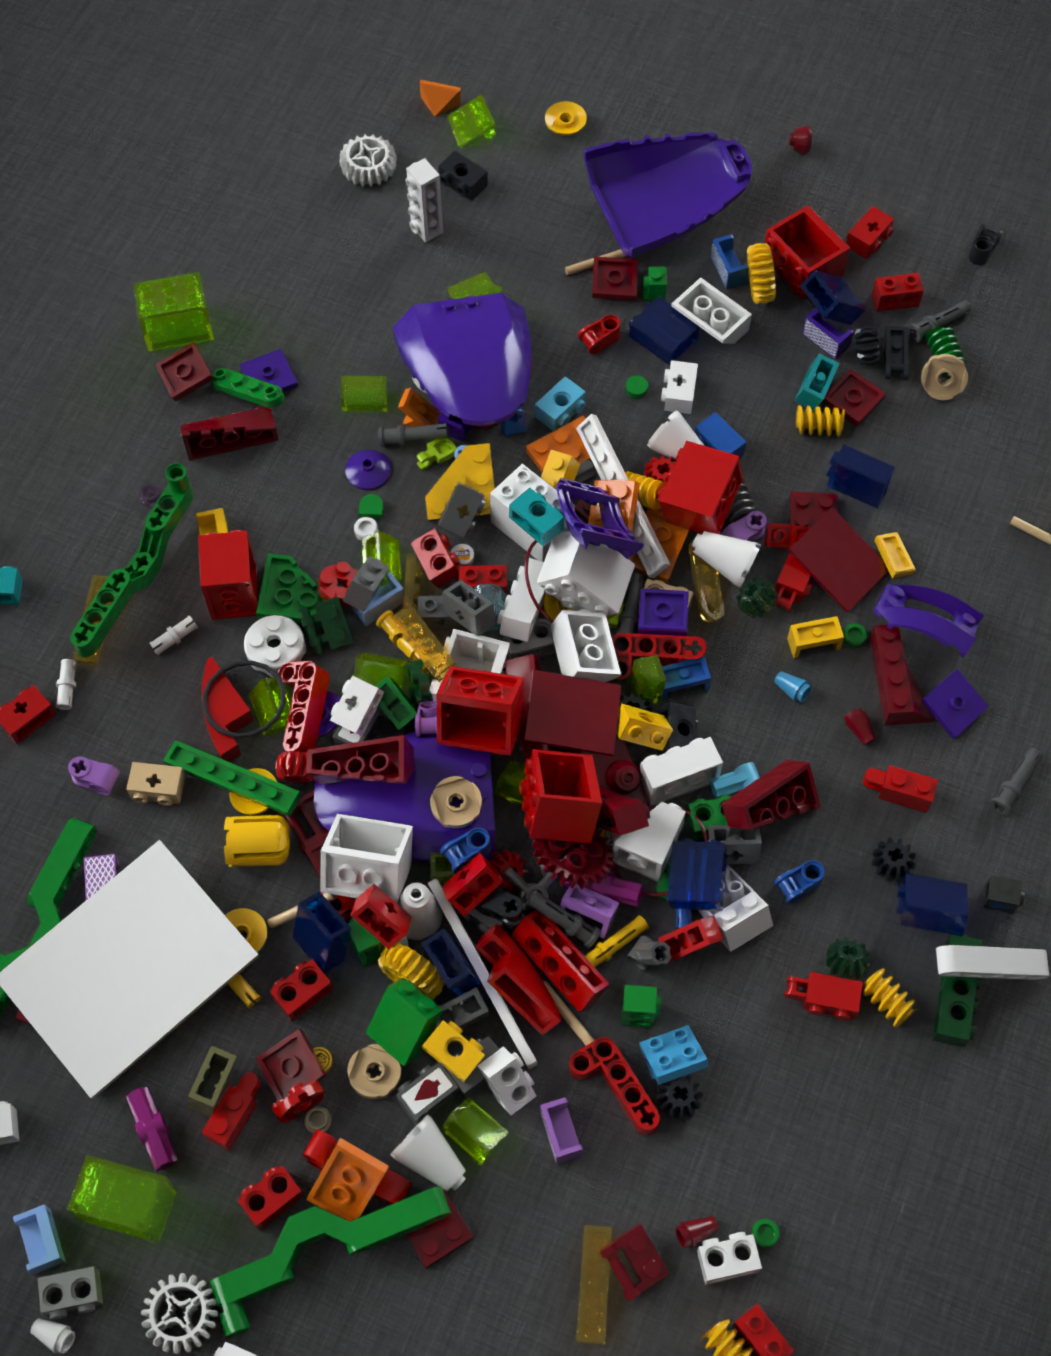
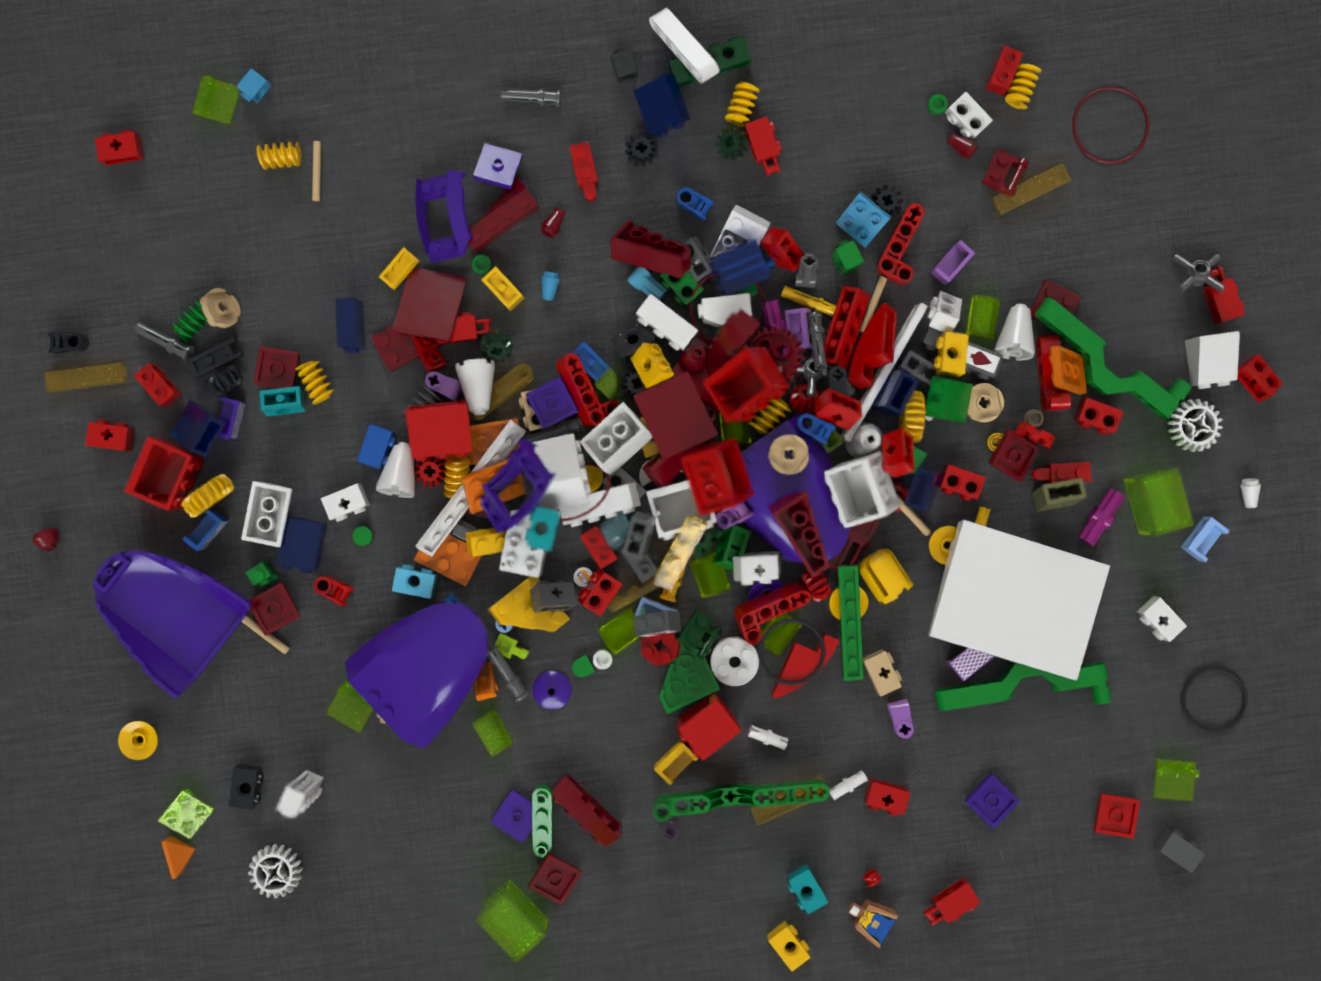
camera: 125 degrees left, 25 degrees up
(70, 1284) = (1219, 502): light grey brick -> none
(509, 827) = (770, 416): none -> yellow piece
(940, 244) = (85, 377): none -> clear yellow plate

